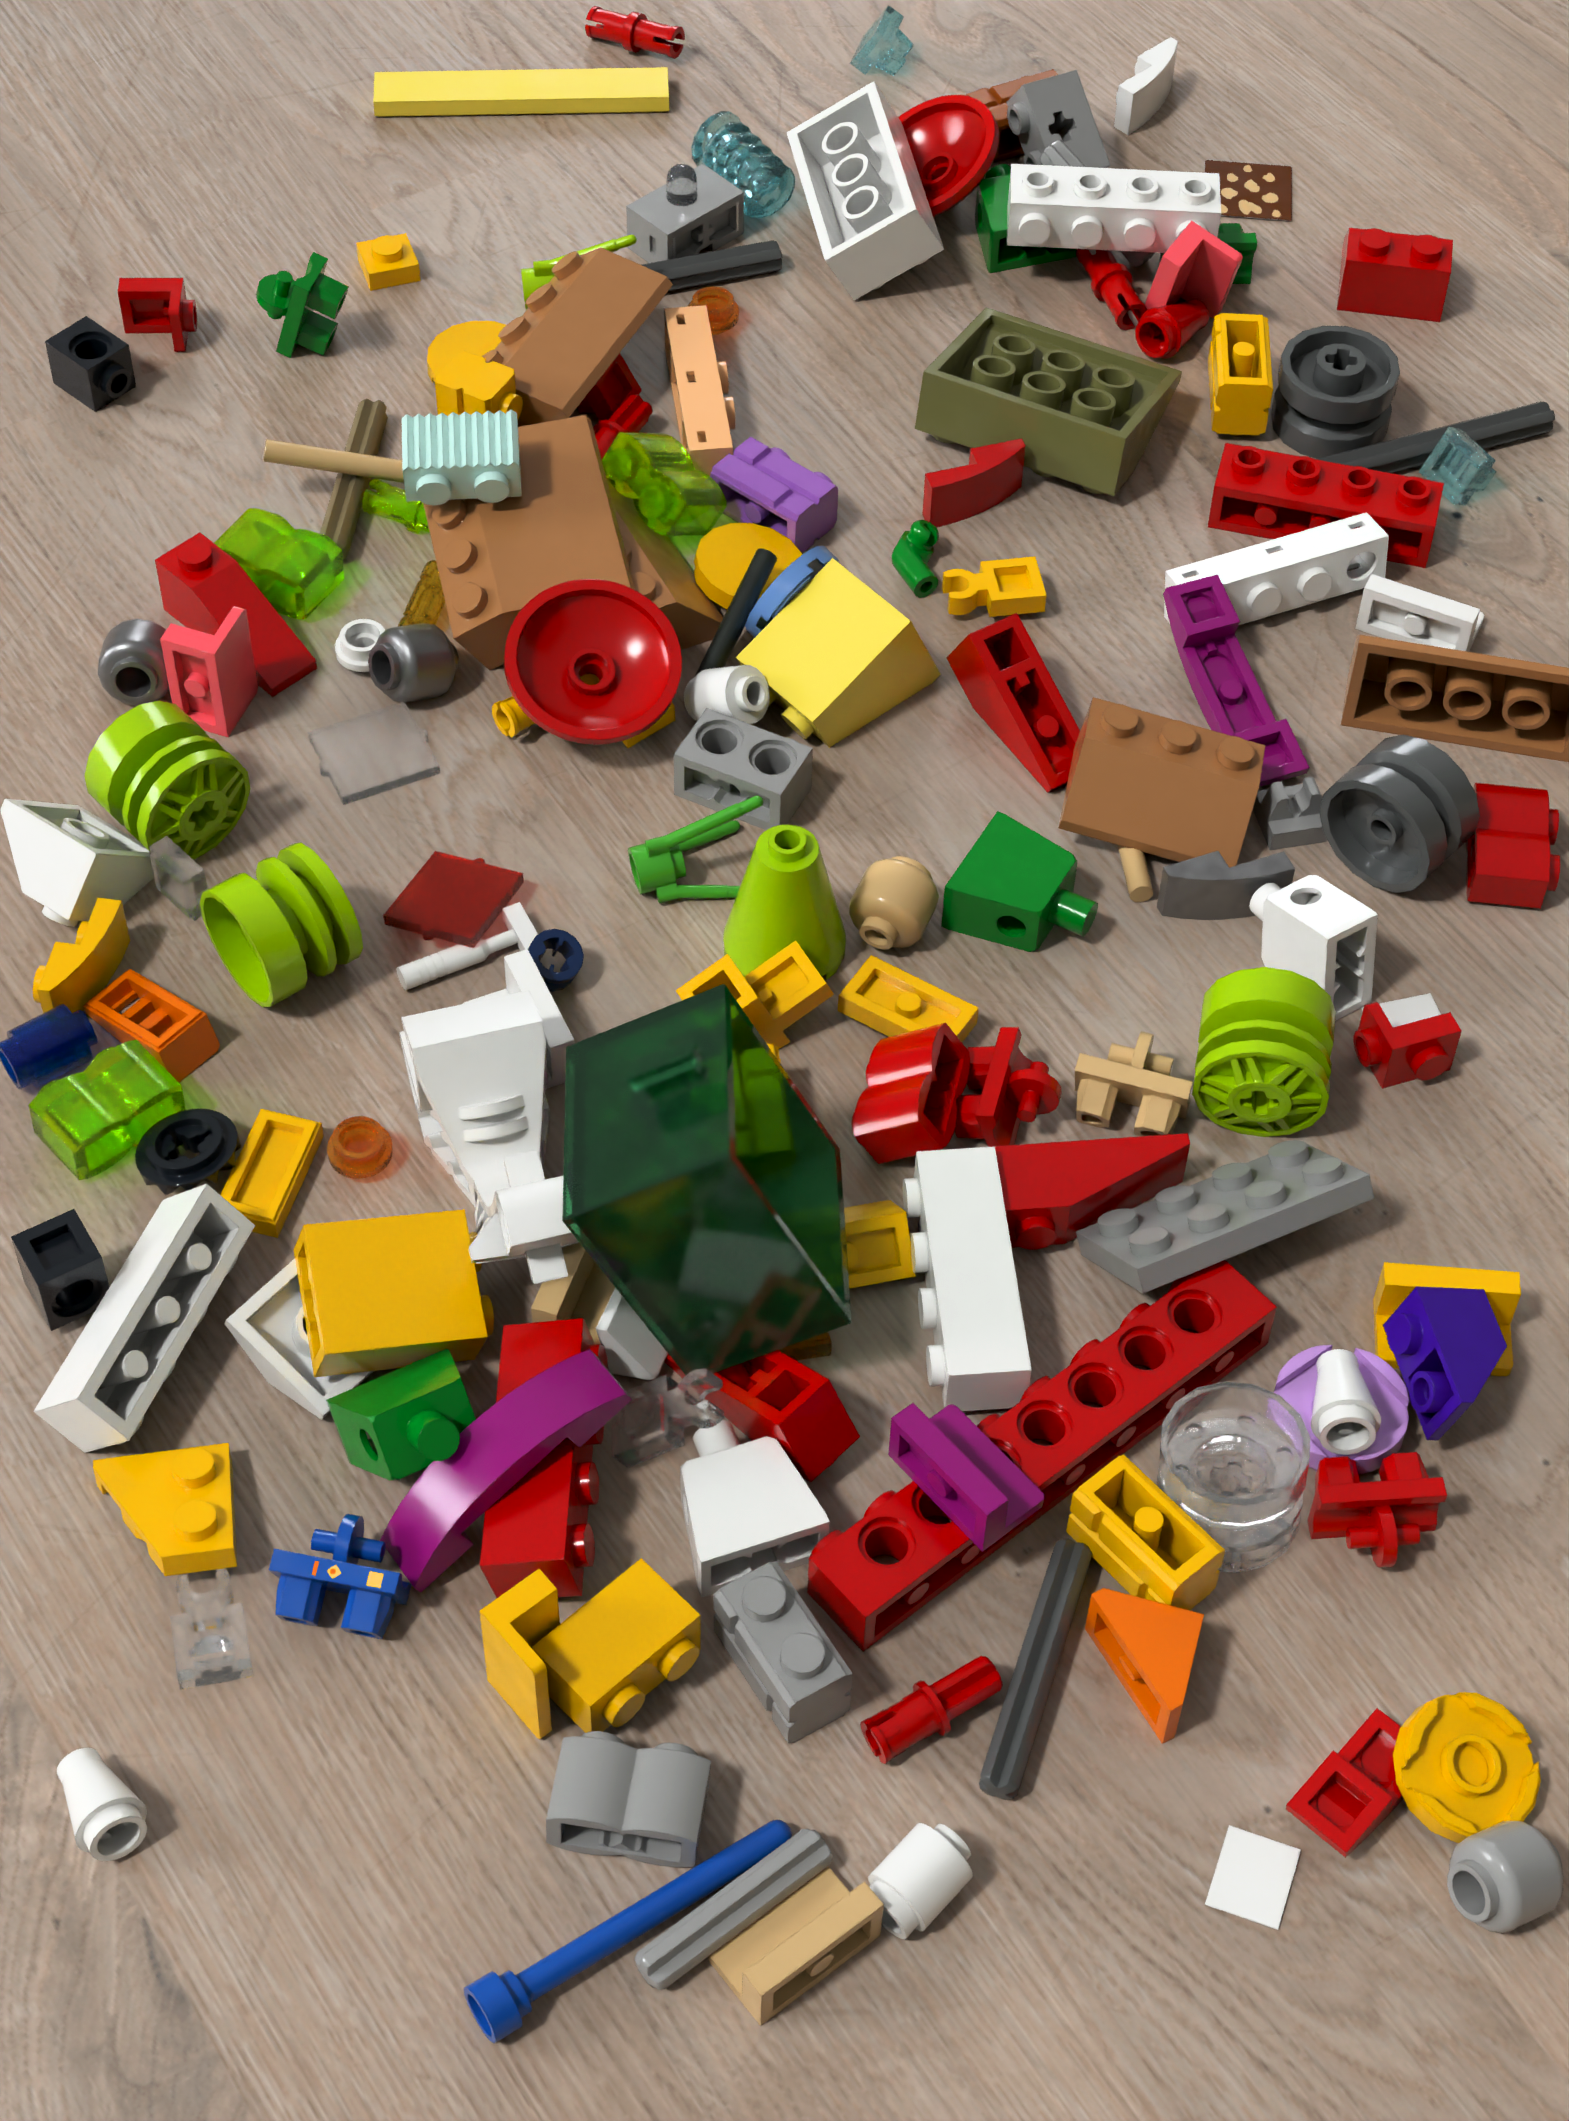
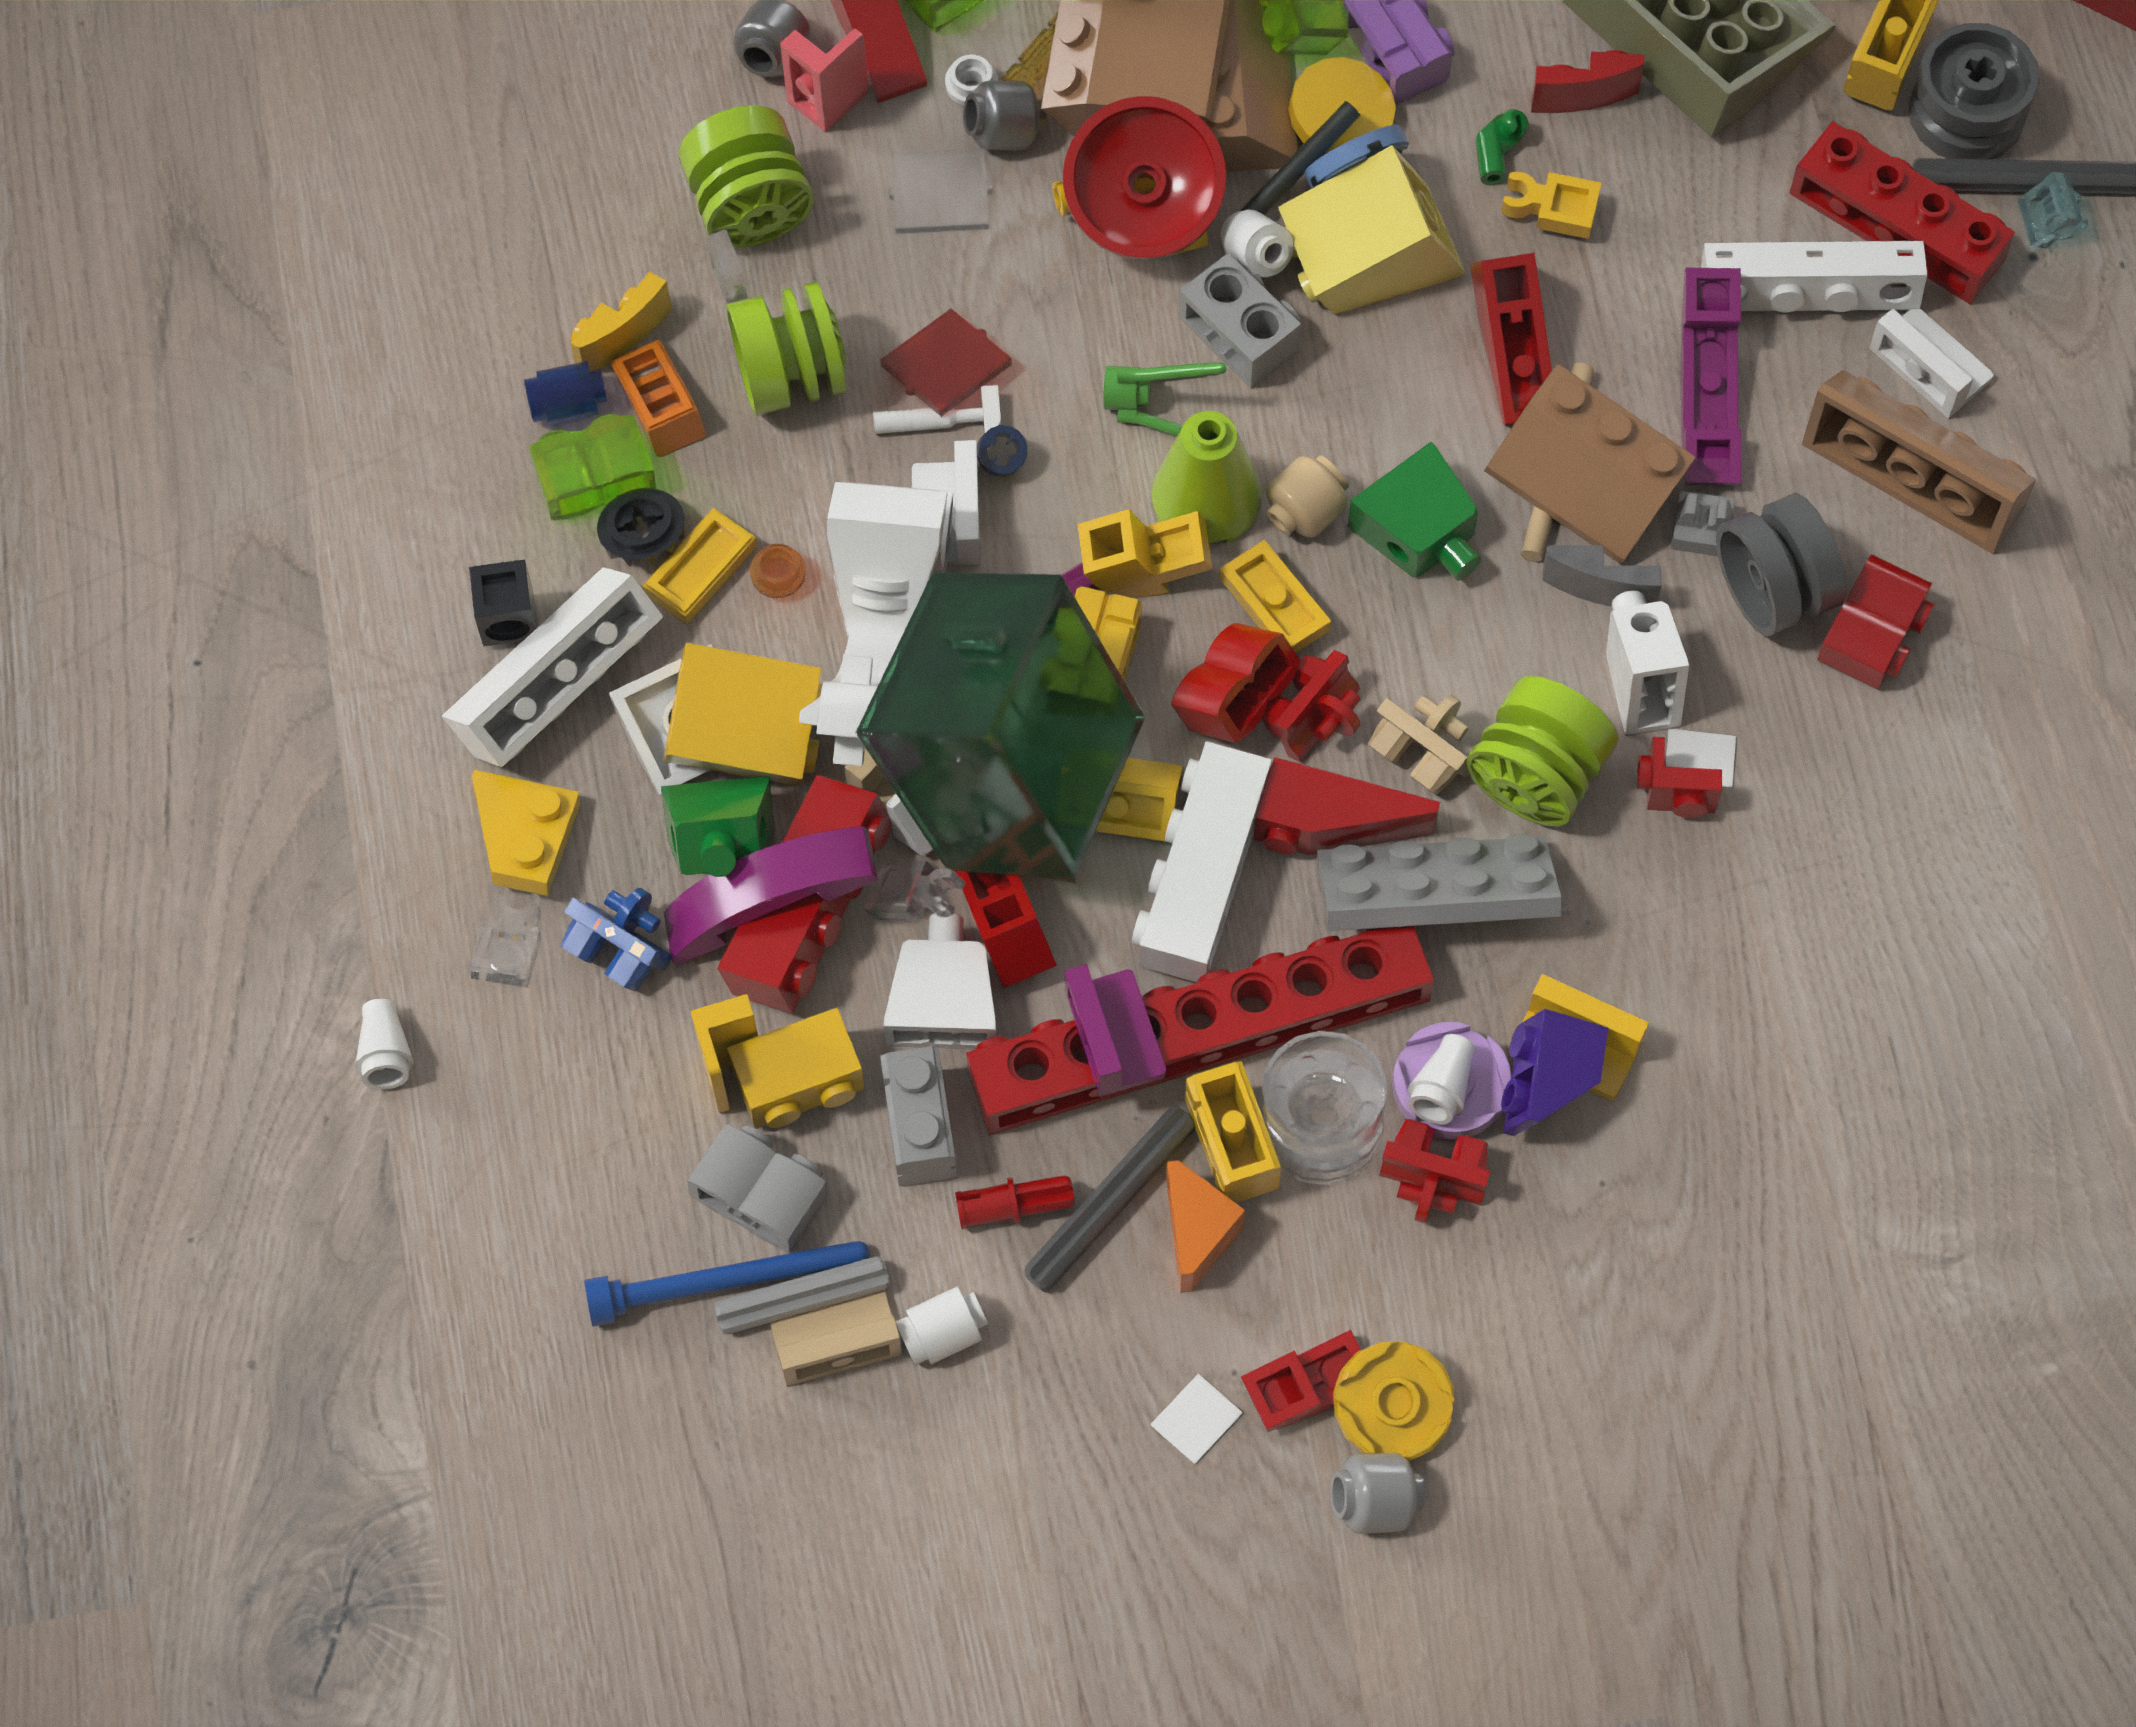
camera: 25 degrees right, 15 degrees up
(72, 858) = (646, 218): white slope -> none

